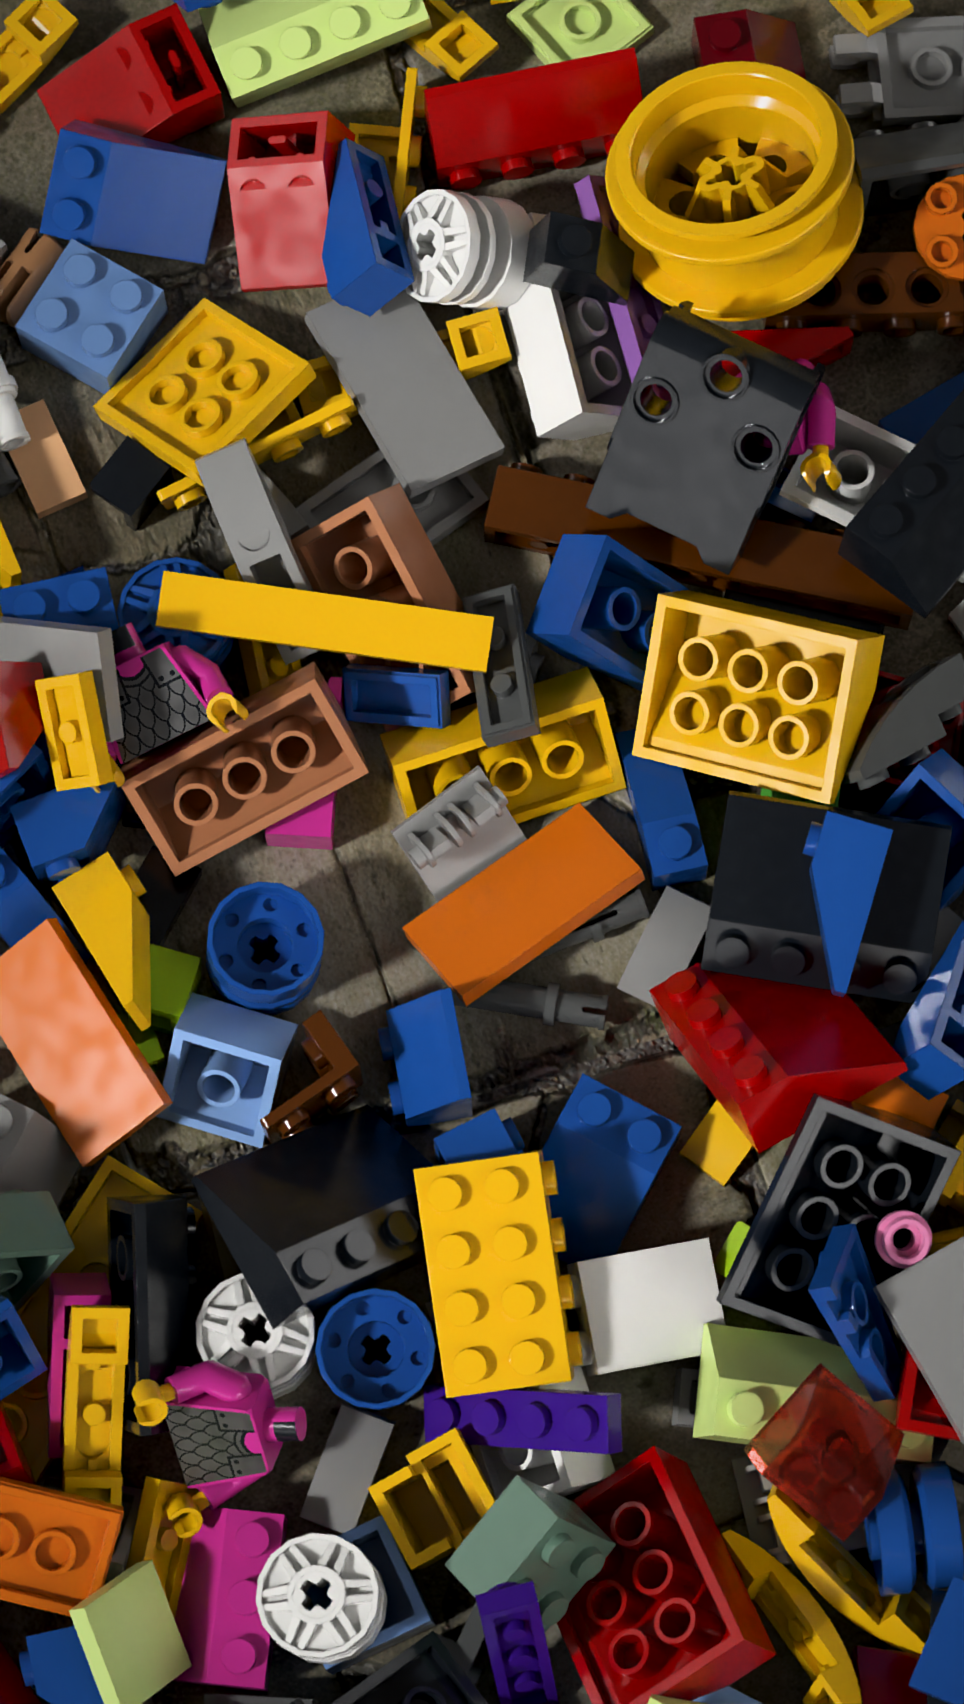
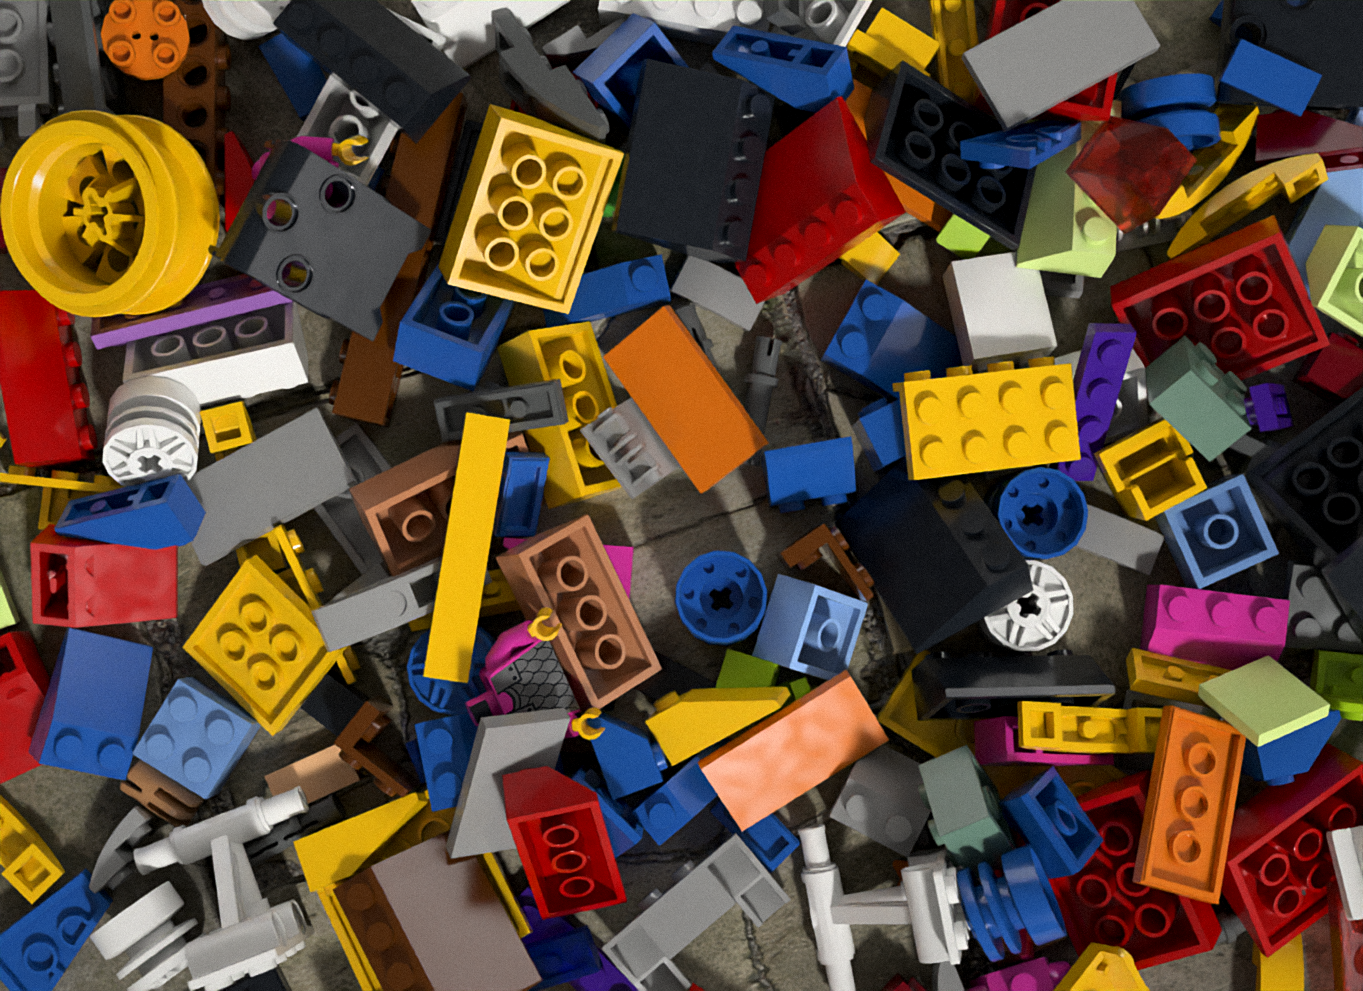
camera: 90 degrees left, 10 degrees up
(73, 508) = (359, 751): none -> reddish brown bracket
(74, 730) = (562, 747): yellow plate -> none
(221, 1431) = (1104, 632): torso -> none
(322, 1633) = (1215, 554): white wheel -> none
(579, 258) = (164, 342): black slope -> none
(844, 880) = (690, 139): blue slope -> none
(915, 1250) = (976, 99): bright pink plate -> none

